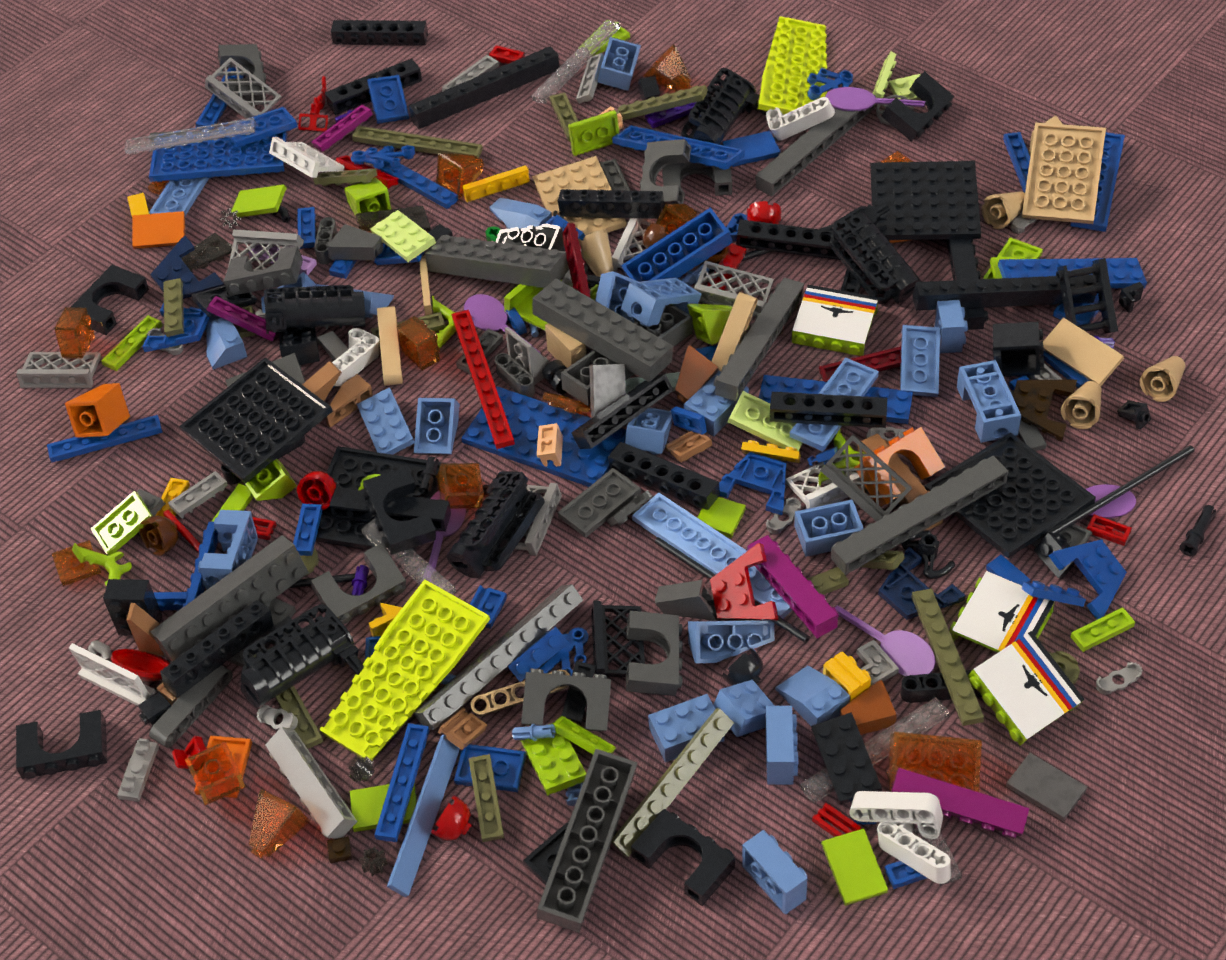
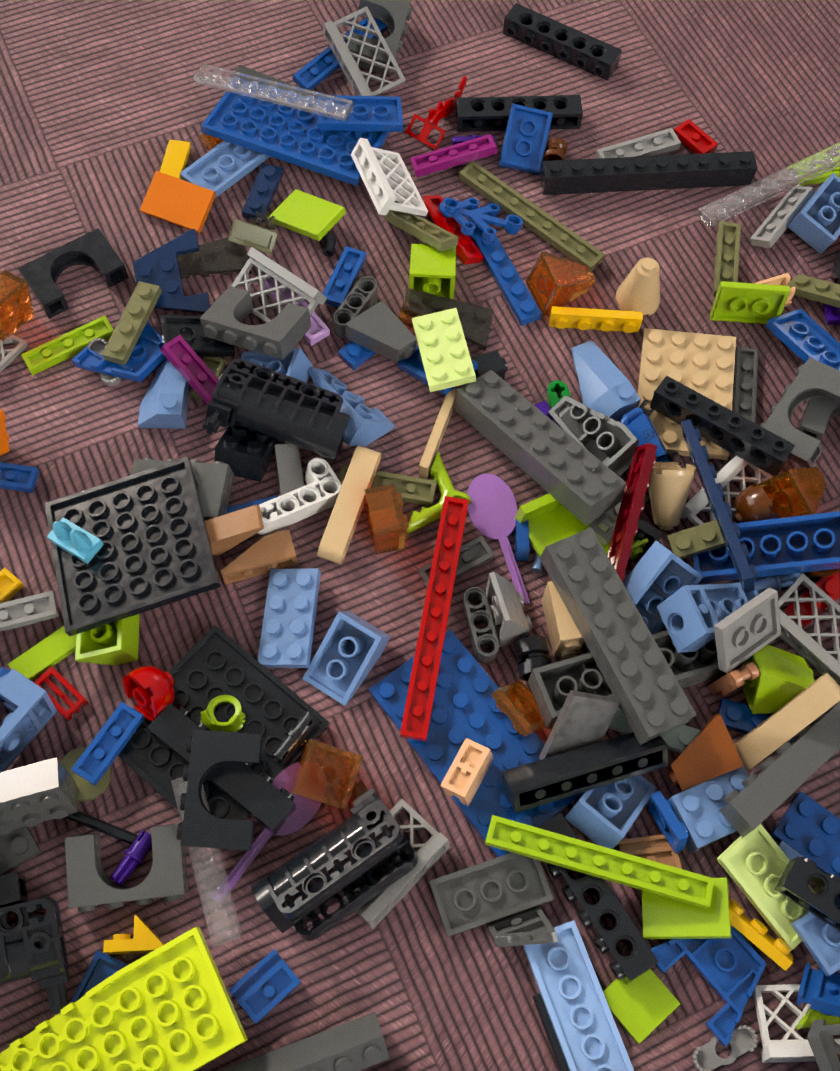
camera: 20 degrees right, 15 degrees up
(215, 201) = (262, 190): none -> dark blue plate
(216, 431) = (74, 540): none -> medium azure tile
(225, 226) = (252, 236): none -> olive tile
(412, 96) = (555, 149): none -> reddish brown wheel
(517, 151) = (641, 288): none -> tan cone
(630, 265) = (696, 540): none -> olive plate
(632, 243) = (721, 510): none -> dark blue plate
(655, 449) = (600, 862): none -> lime plate
(681, 292) = (747, 630): none -> light grey plate
(689, 330) = (734, 679): none -> nougat plate
(723, 455) = (679, 920): none -> lime tile

